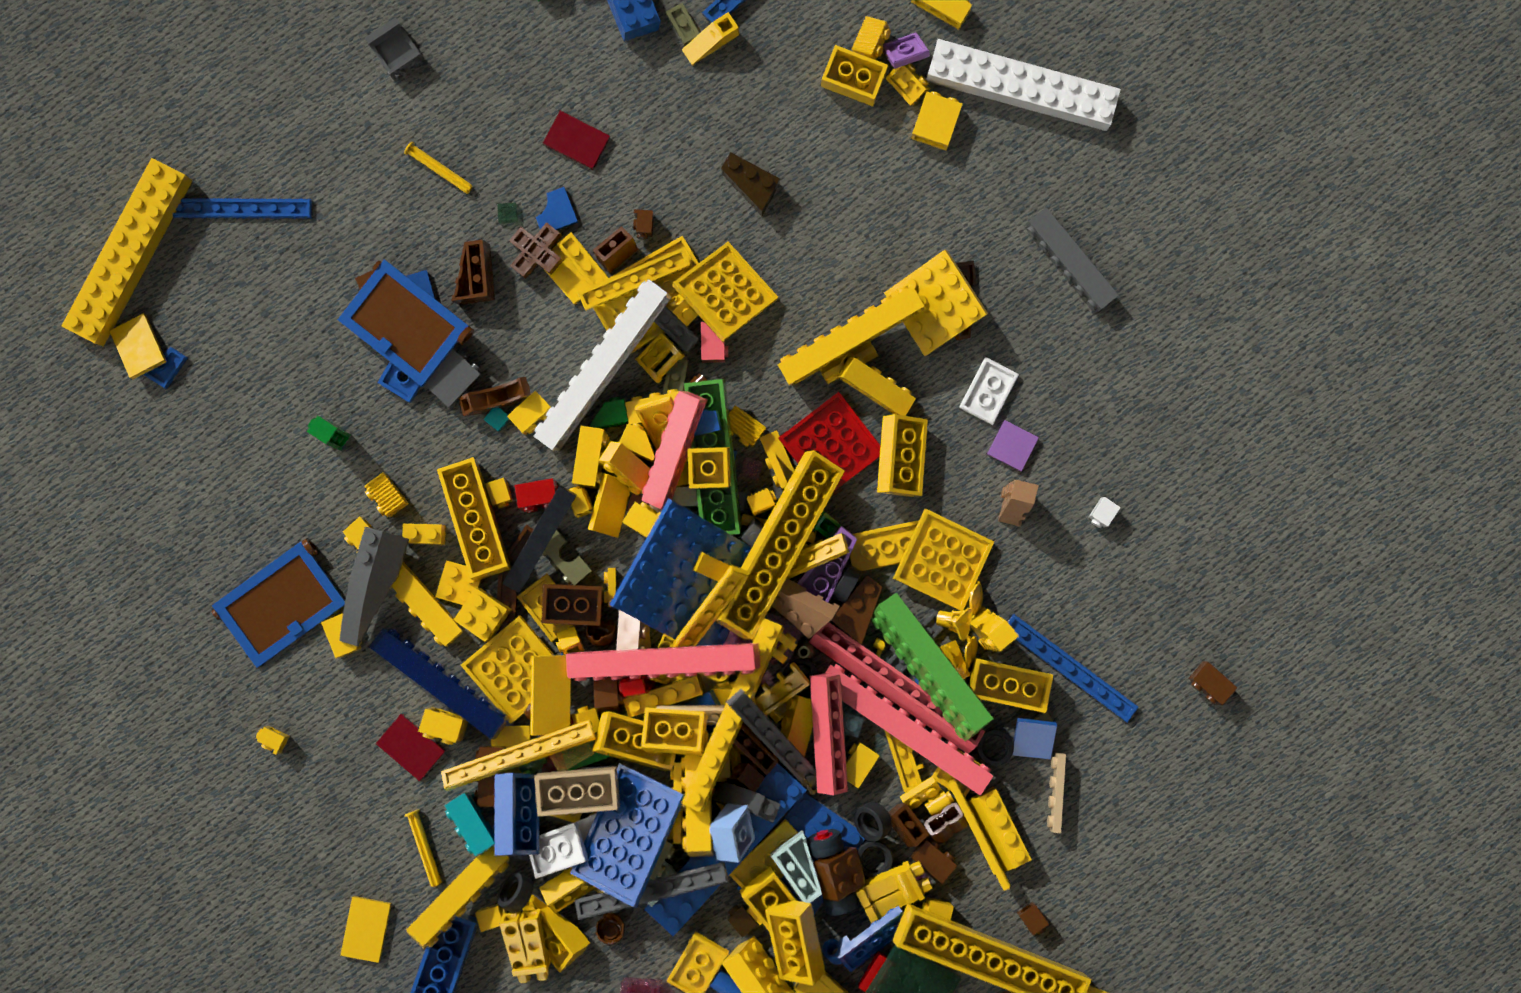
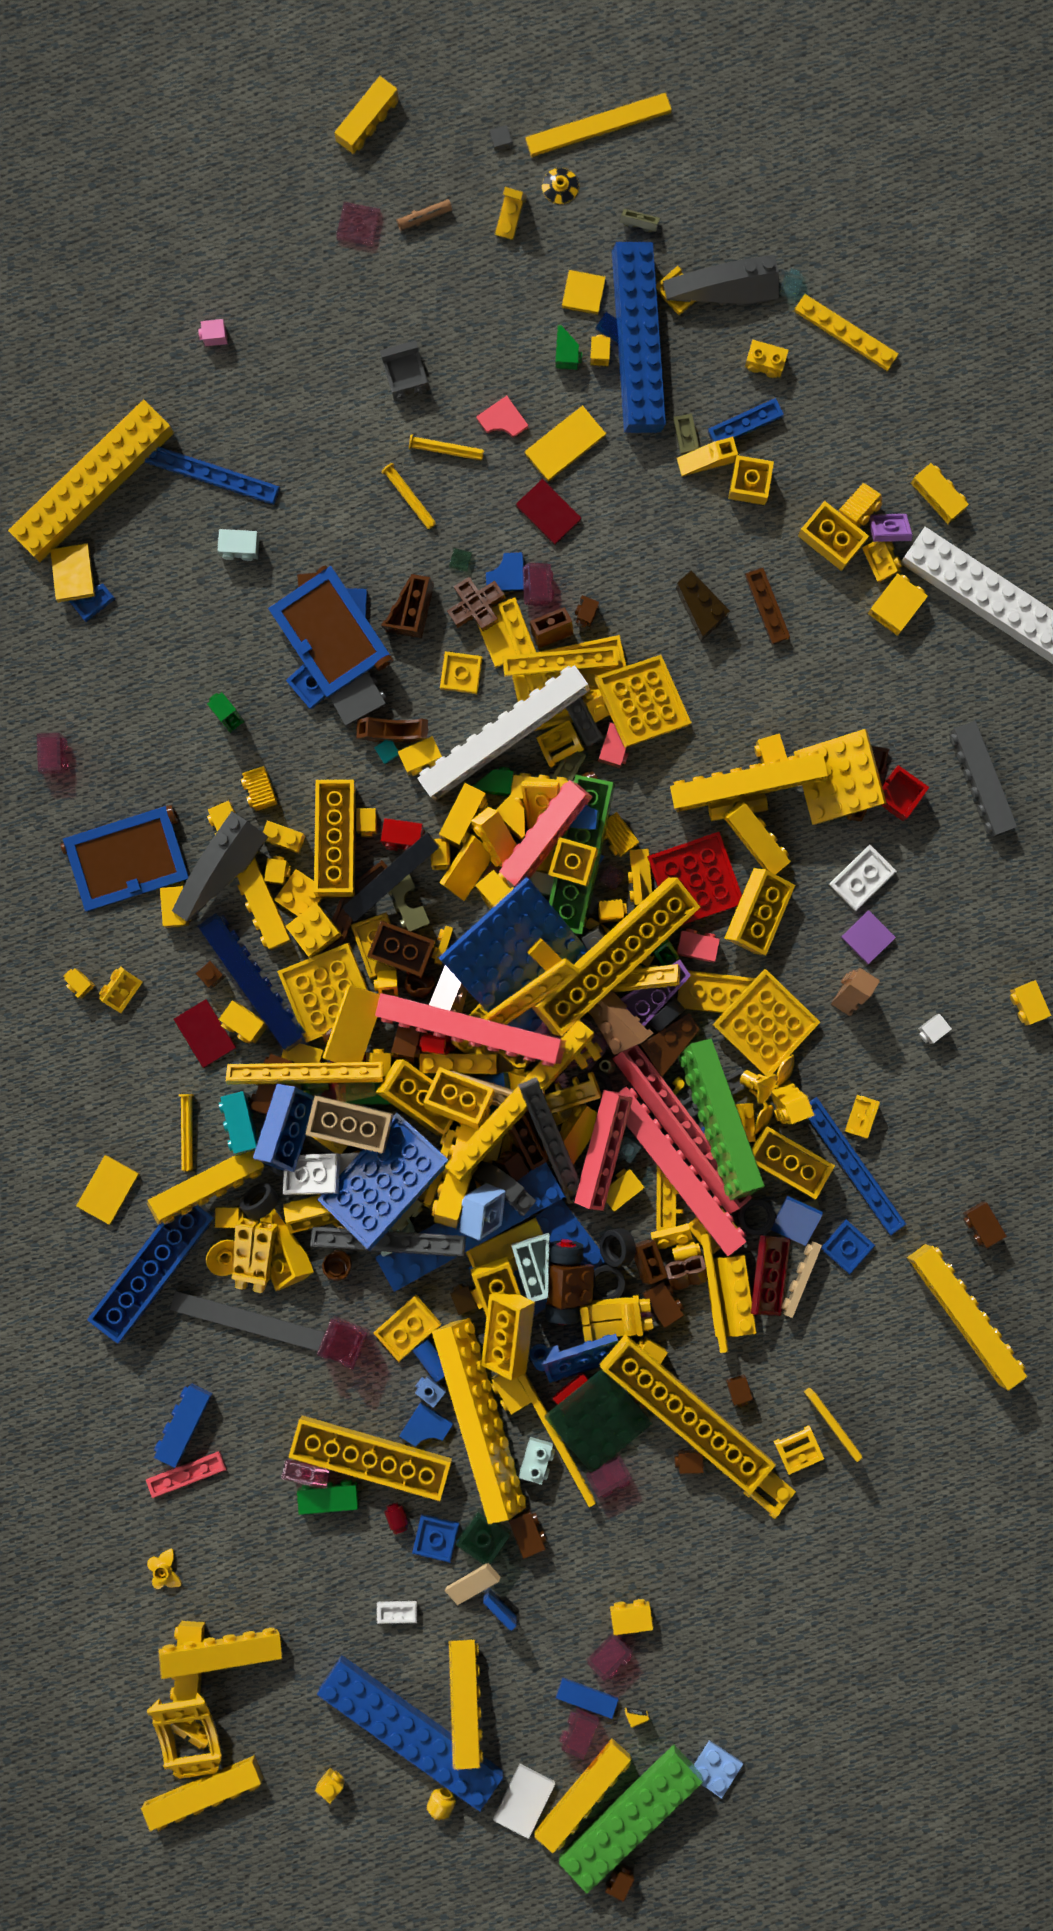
camera: 20 degrees right, 0 degrees up
(174, 526) = (51, 753): none -> clear pink piece
(199, 72) = (213, 332): none -> bright pink brick
(289, 267) = (238, 544): none -> light aqua brick
(314, 732) = (120, 989): none -> yellow bracket
(397, 689) = (210, 974): none -> reddish brown brick
(428, 568) = (277, 870): none -> yellow brick
(458, 111) = (445, 448): none -> yellow axle
(497, 965) = (221, 1265): none -> yellow dish
(503, 64) = (502, 417): none -> coral tile
(543, 320) = (461, 672): none -> yellow tile
(571, 69) = (565, 443): none -> yellow tile
(588, 212) = (537, 584): none -> clear pink brick
(759, 47) = (751, 480): none -> yellow brick
(813, 162) = (767, 606): none -> reddish brown plate
(854, 507) = (698, 946): none -> coral brick
(861, 298) = (770, 749): none -> yellow brick
(1000, 298) = (902, 792): none -> red piece
(1026, 799) = (770, 1275): none -> dark red tile
(1063, 618) = (862, 1116): none -> yellow hinge
(1090, 746) = (847, 1246): none -> blue tile
(1113, 961) = (801, 1456): none -> yellow plate
(1133, 922) = (832, 1423): none -> yellow tile
(1185, 458) = (1029, 1003): none -> yellow brick
(1227, 778) = (967, 1317): none -> yellow brick

